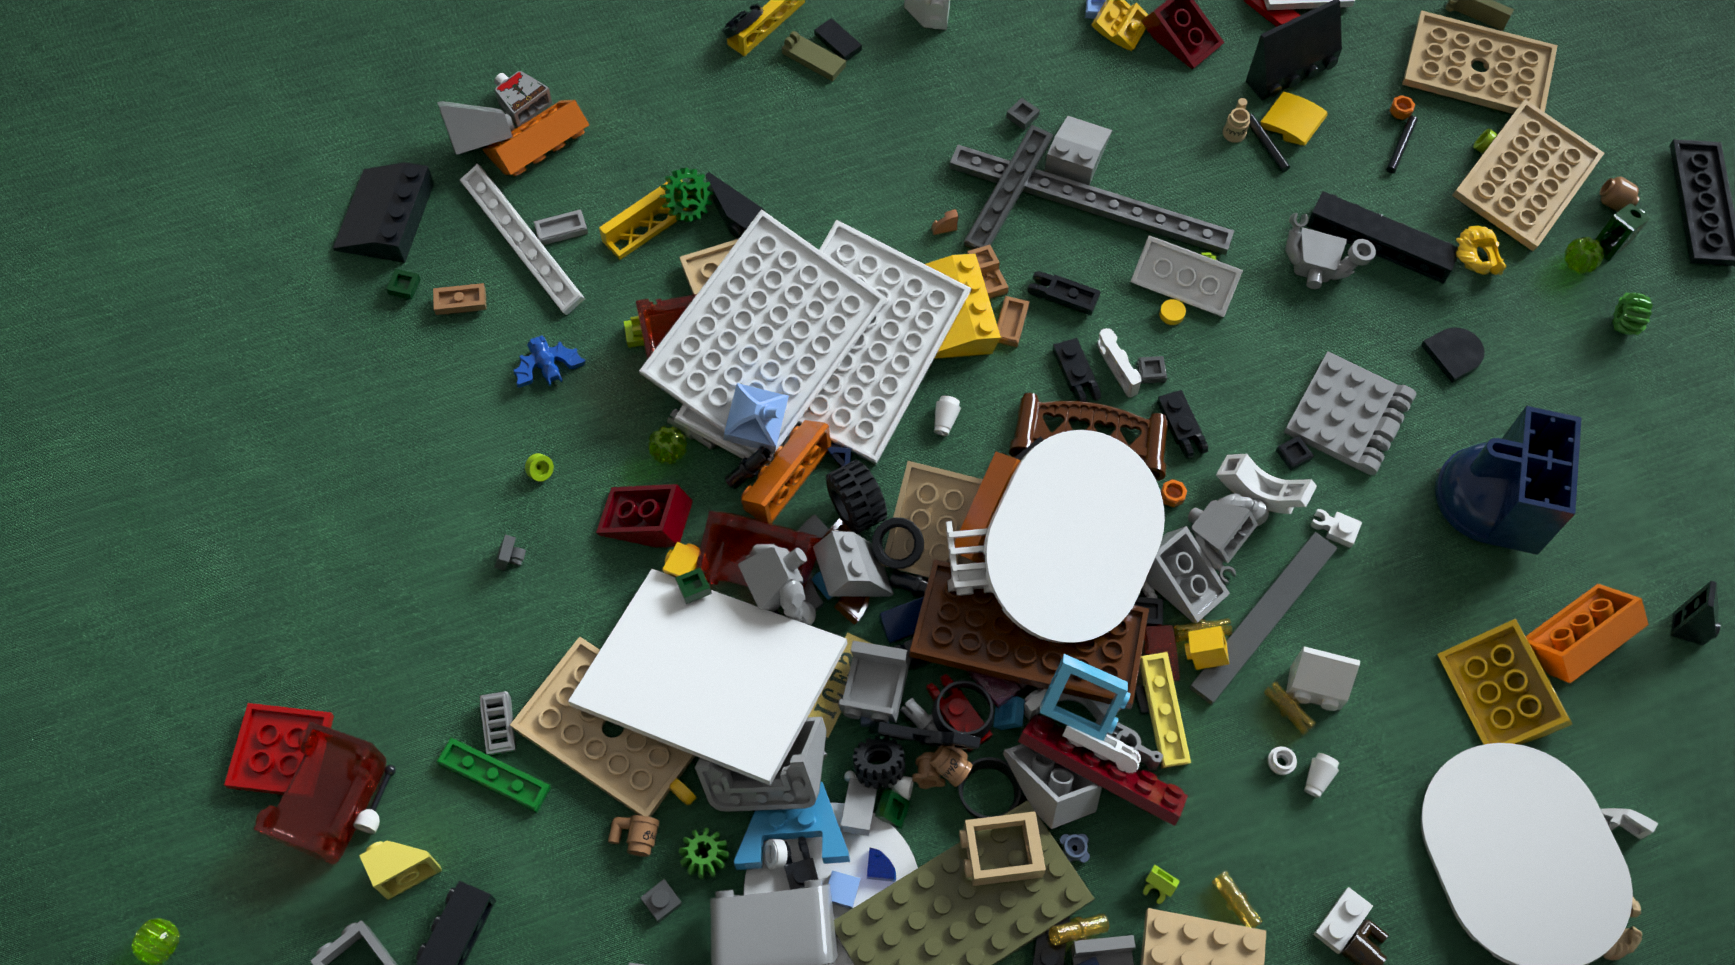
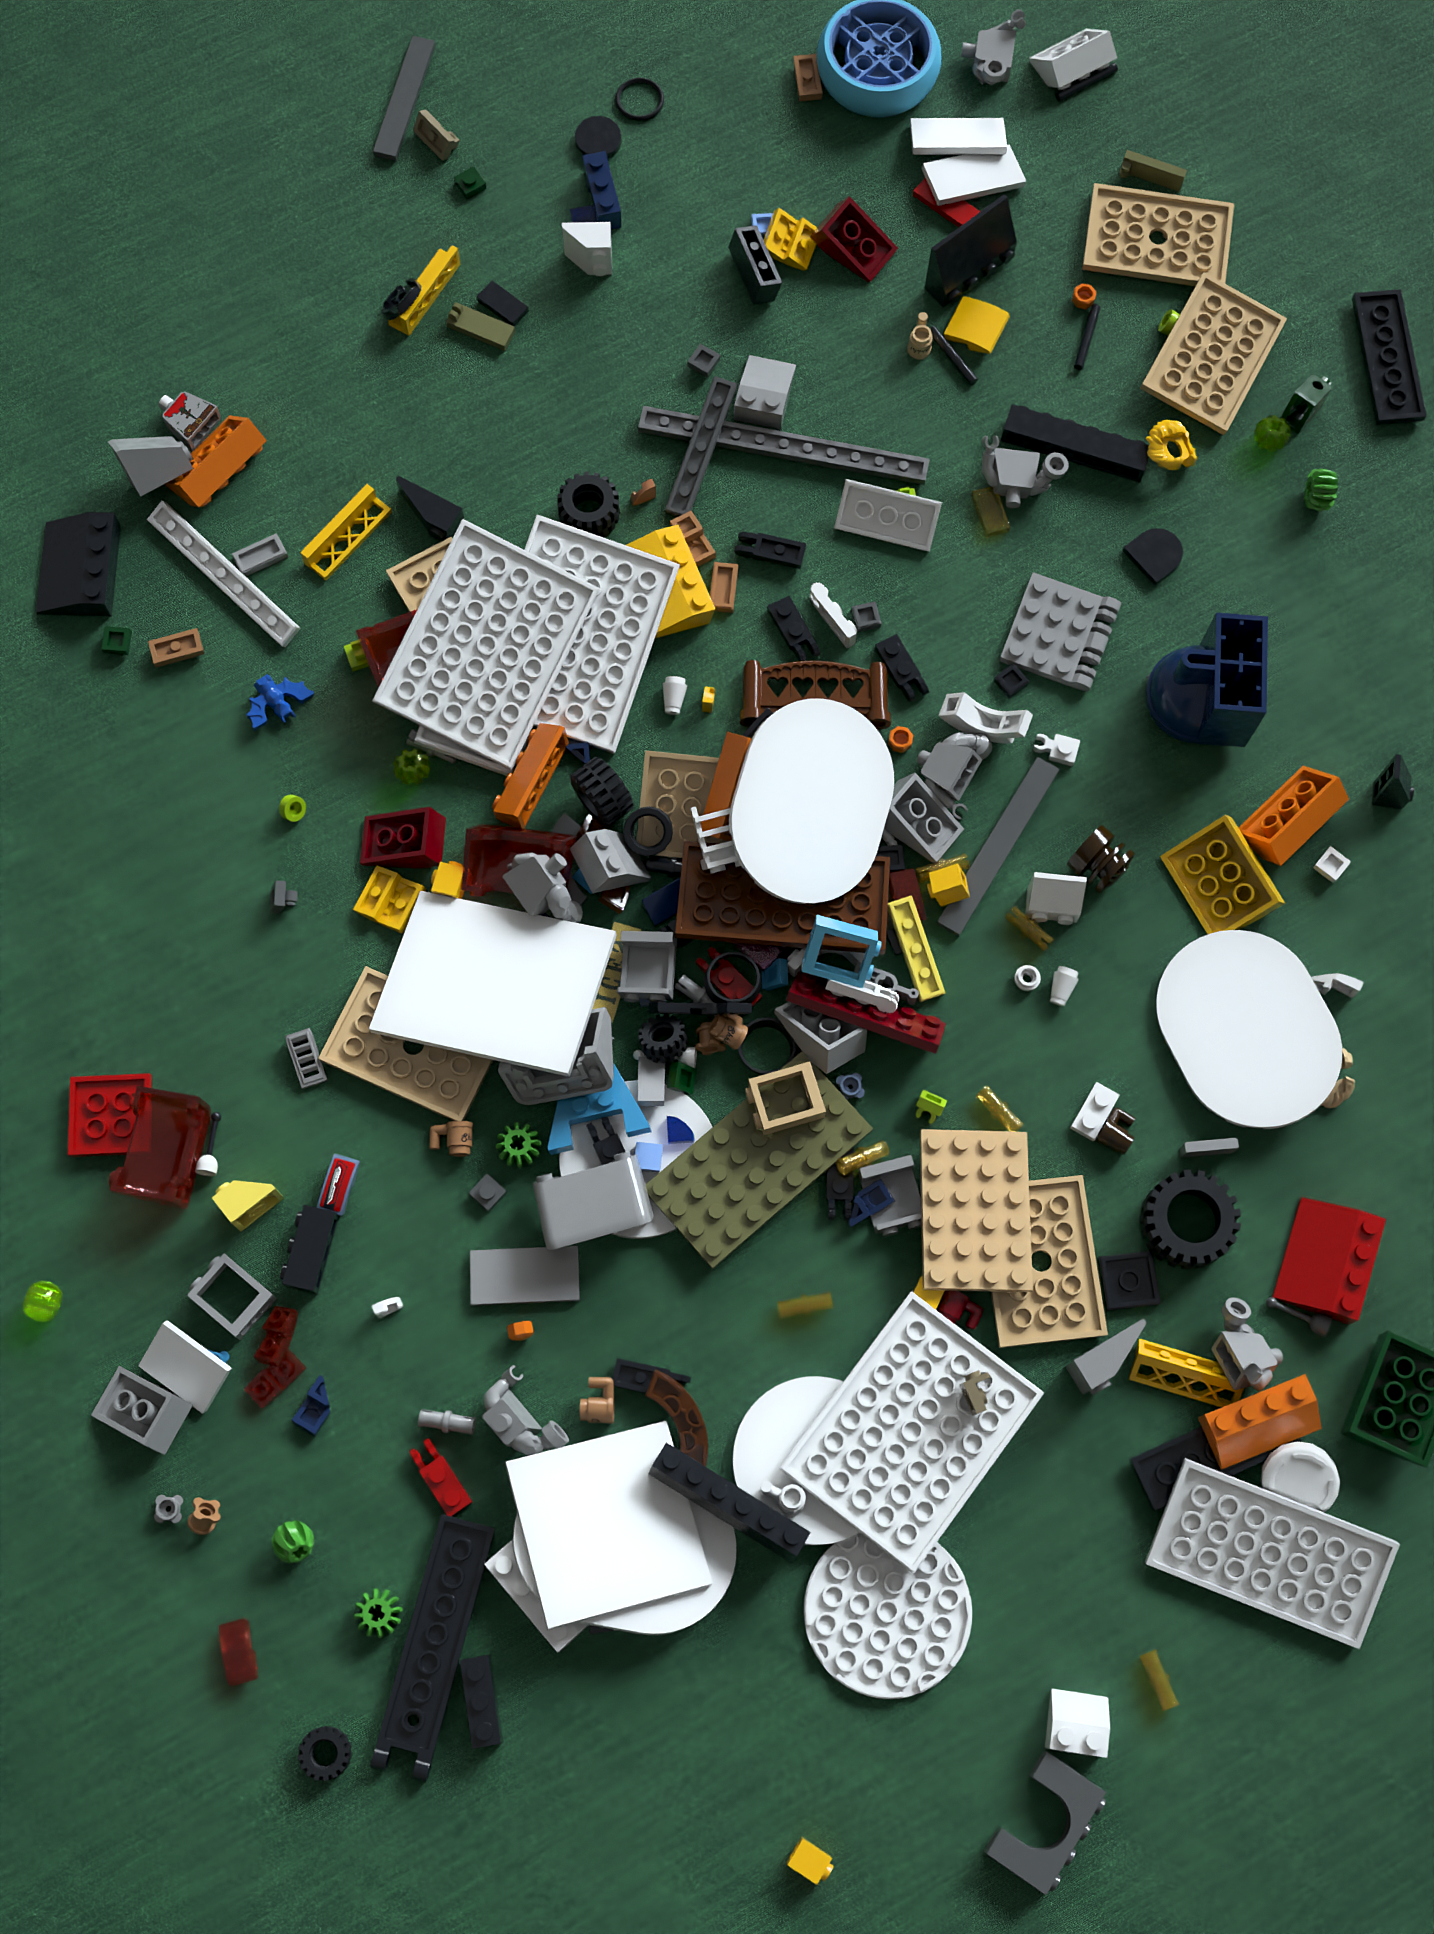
camera: 10 degrees left, 10 degrees up
(493, 775) = (312, 1105): green tile -> none
(501, 864) = (338, 1184): none -> slope
(617, 573) = (388, 899): none -> yellow slope
(682, 792) = (488, 1093): yellow tile -> none
(686, 194) = (372, 504): green gear -> none
(693, 585) = (463, 902): dark green plate -> none
(748, 467) = (494, 778): black pin -> none
(755, 417) = (493, 729): light blue piece -> none
(775, 854) = (583, 1135): white tile -> none
(891, 210) = (589, 488): none -> black tyre
(980, 425) = (708, 699): none -> yellow tile
(1085, 36) = (755, 264): none -> black brick
(1172, 312) = (879, 553): yellow tile -> none
(1290, 289) = (990, 511): none -> clear yellow tile
(1375, 646) = (1101, 859): none -> dark brown wheel
(1619, 193) = (1303, 361): medium nougat head -> none
(1625, 691) = (1332, 864): none -> white plate

